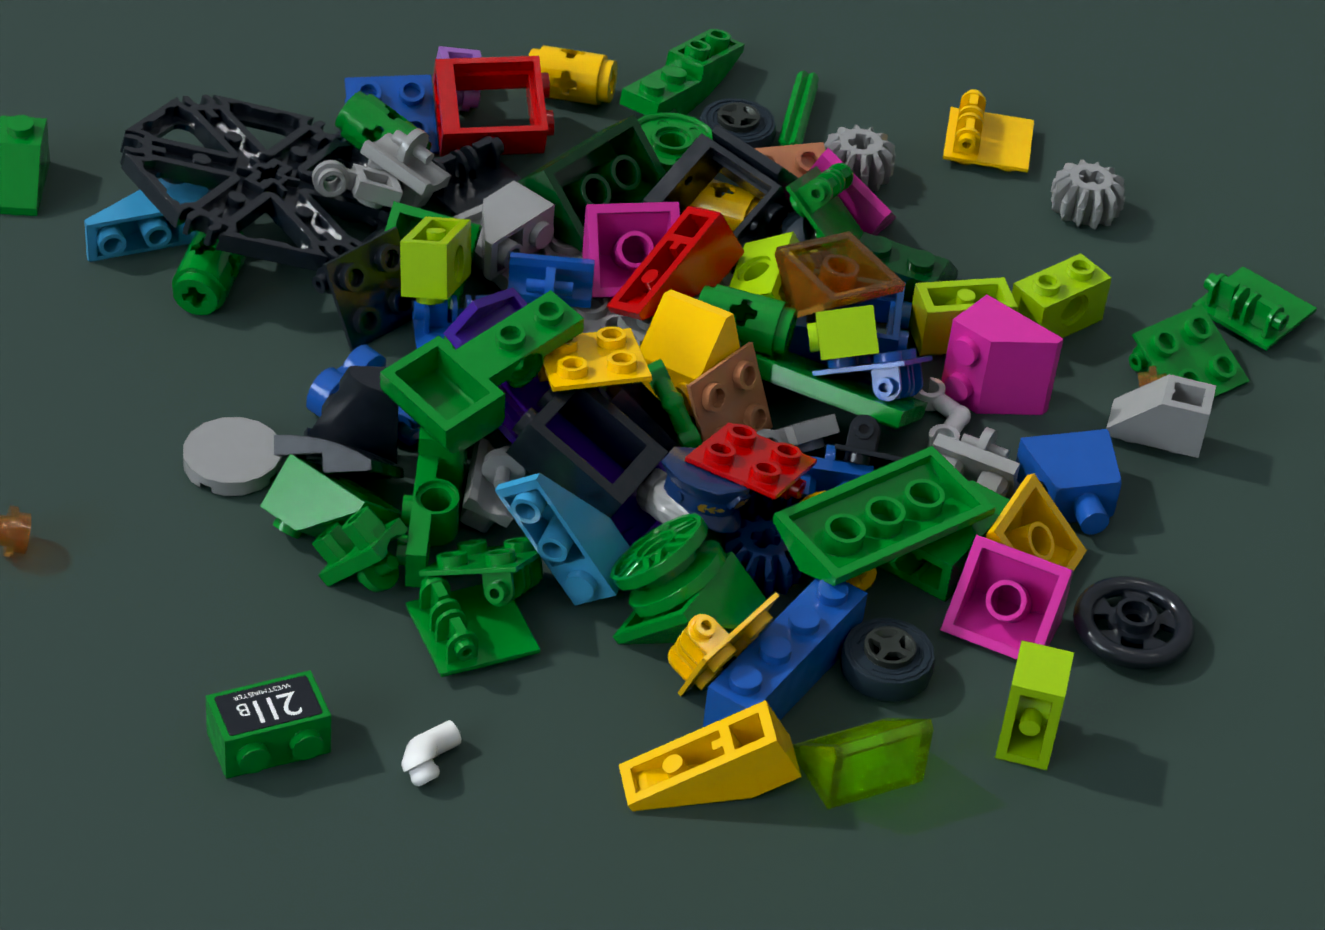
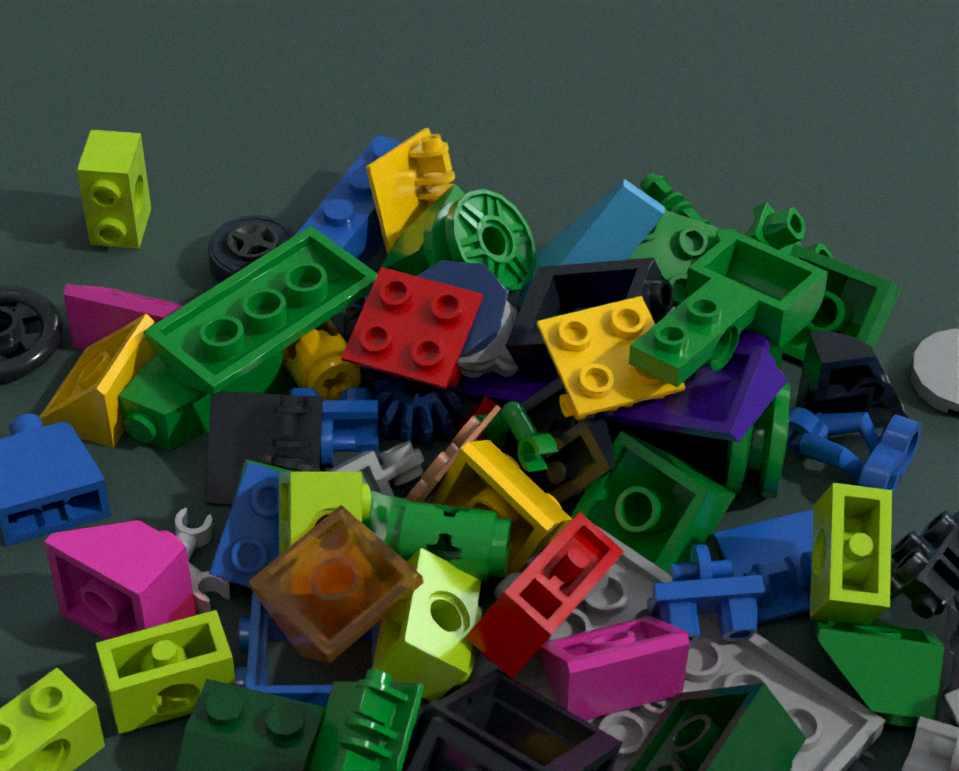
camera: 175 degrees right, 5 degrees up
(268, 724) = (794, 113): green brick -> none
(338, 458) = (861, 310): black slope -> none
(424, 747) = (658, 128): white arm -> none
(513, 222) = (788, 662): light grey slope -> none
(714, 764) = (374, 114): yellow slope -> none
(866, 759) = (272, 157): clear neon green slope -> none
(981, 460) = (158, 474): light grey hips -> none

